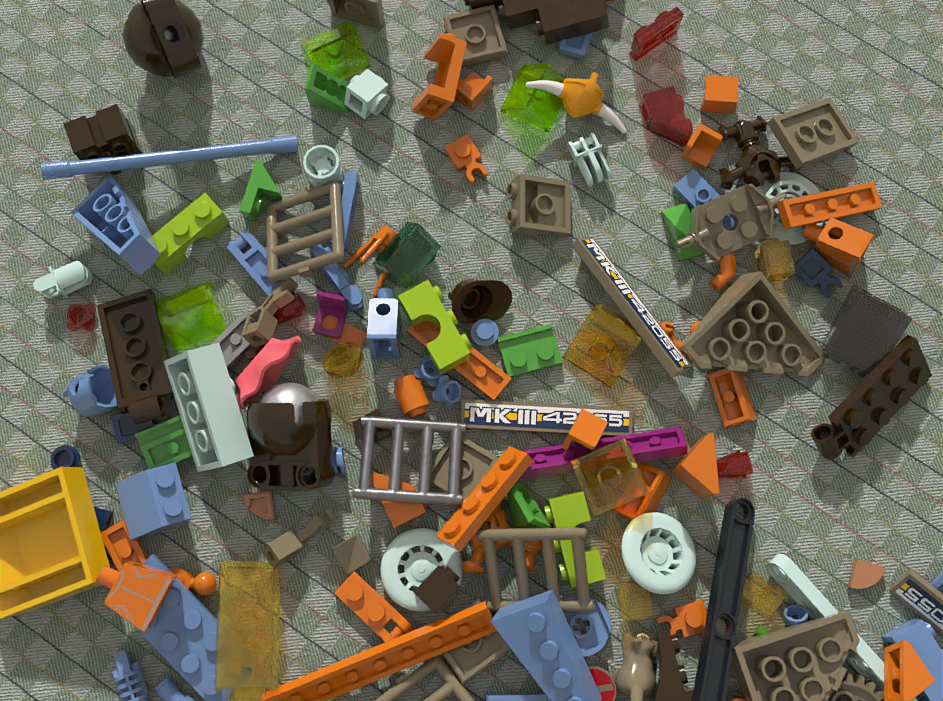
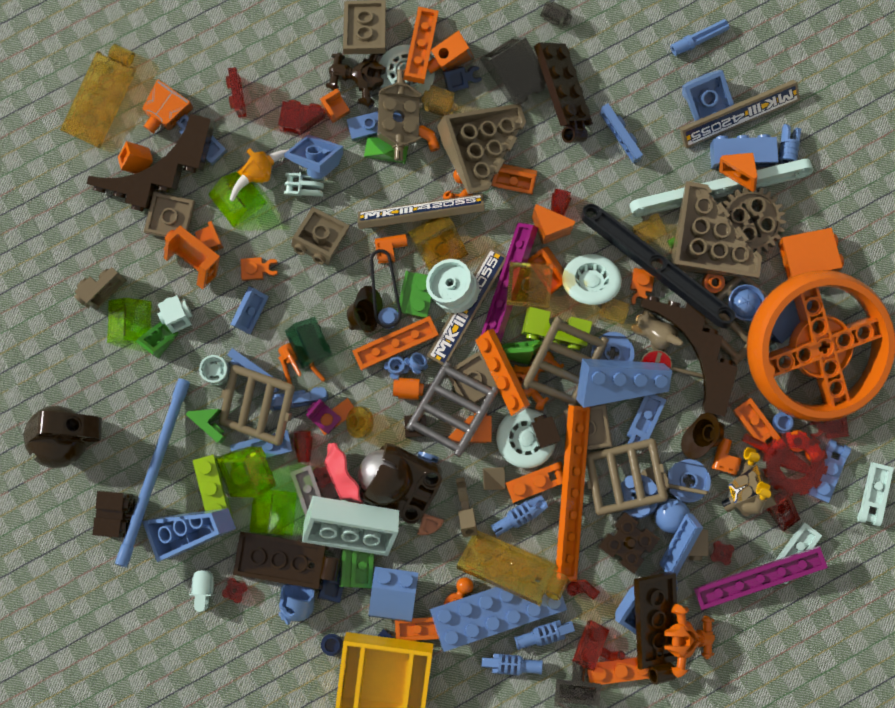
camera: 65 degrees left, 5 degrees up
(136, 591) = (452, 626): orange torso -> none
(220, 260) = (246, 472): none -> clear neon green slope
(261, 323) = (306, 464): dark tan piece -> none
(323, 610) = (520, 515): none -> medium blue hinge
(384, 326) = (355, 383): medium blue torso -> none
(412, 172) = (249, 310): none -> medium blue plate
(423, 305) = (351, 346): lime arch -> none
(508, 298) = (374, 292): none -> black piece
(560, 385) = (452, 286): none -> light aqua wheel
(567, 287) = (388, 244): none -> orange piece
(586, 430) = (491, 284): orange panel -> none
(630, 154) = (316, 155): none -> medium blue slope
(720, 94) = (303, 72): orange panel -> none
(795, 610) = (669, 214): medium blue hinge -> none
(856, 508) = (617, 127): none -> medium blue plate
(864, 574) = (669, 158): nougat tile -> none

